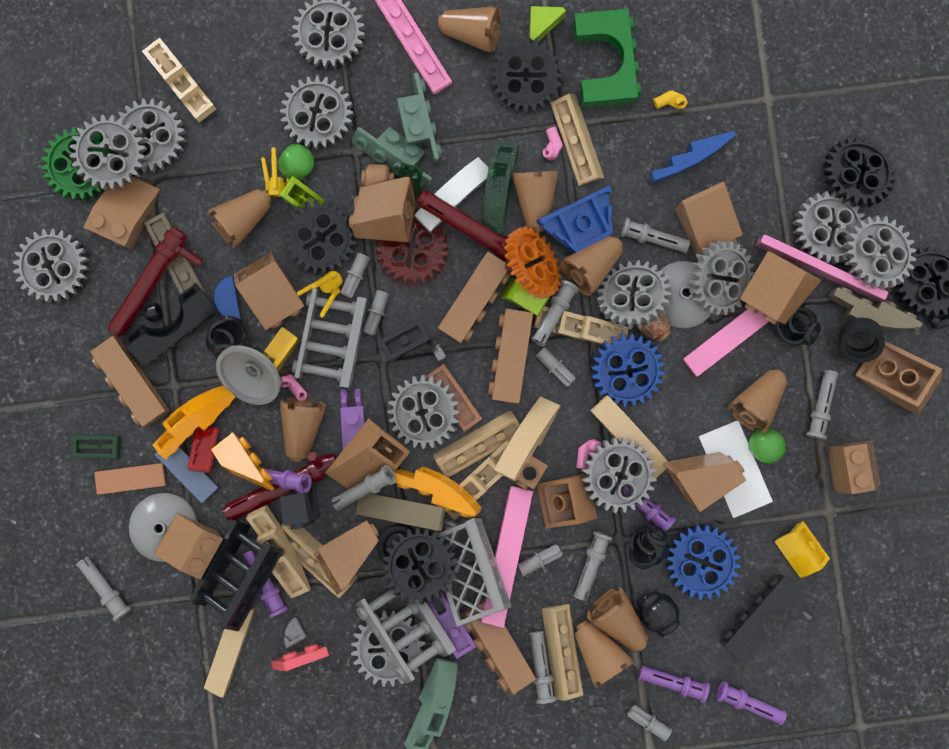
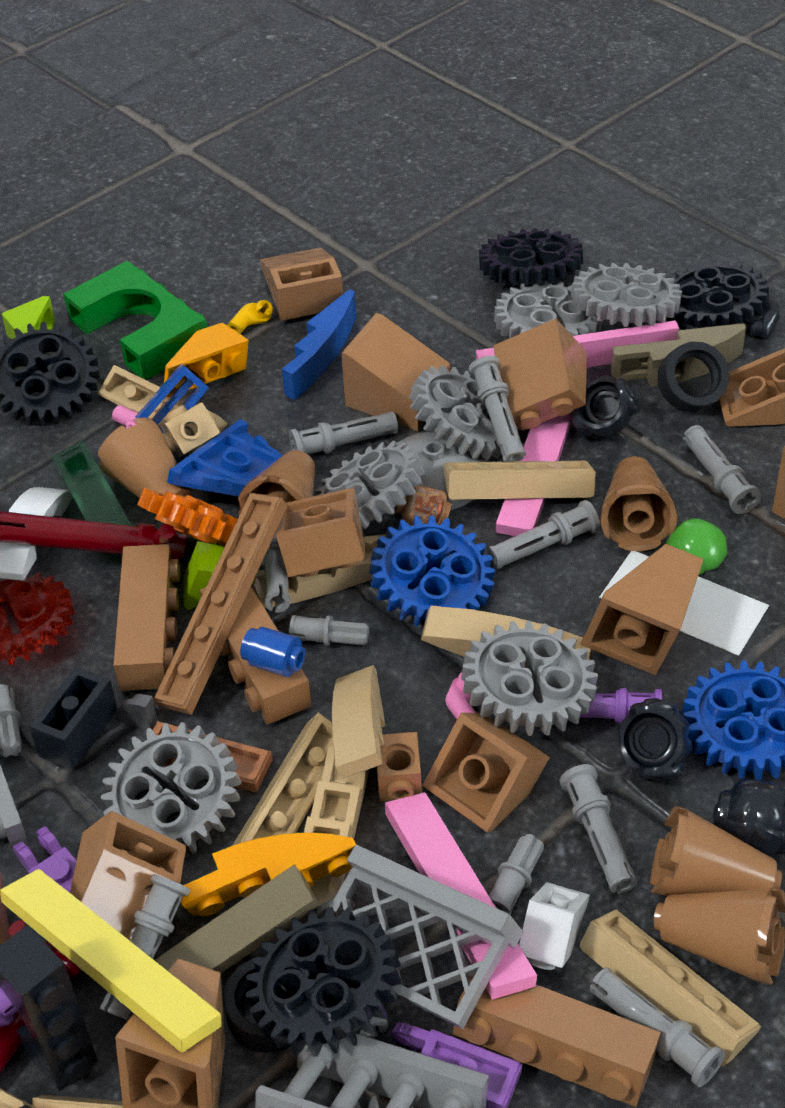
camera: 30 degrees left, 40 degrees down
(337, 505) = (112, 960): none -> light yellow tile
(510, 328) = (220, 603): none -> medium nougat tile
(511, 381) = (272, 651): none -> blue brick
(537, 596) = (552, 925): none -> white slope
(573, 183) = (197, 421): none -> tan brick
(576, 152) = (165, 390): none -> blue tile
(585, 318) = (321, 533): none -> medium nougat slope
(627, 125) = (210, 355): none -> light orange slope
(711, 386) = (561, 532): none -> light grey pin
(715, 341) = (519, 480): none -> tan slope
(719, 92) = (302, 282): none -> medium nougat slope
(741, 285) = (494, 395): none -> light grey pin

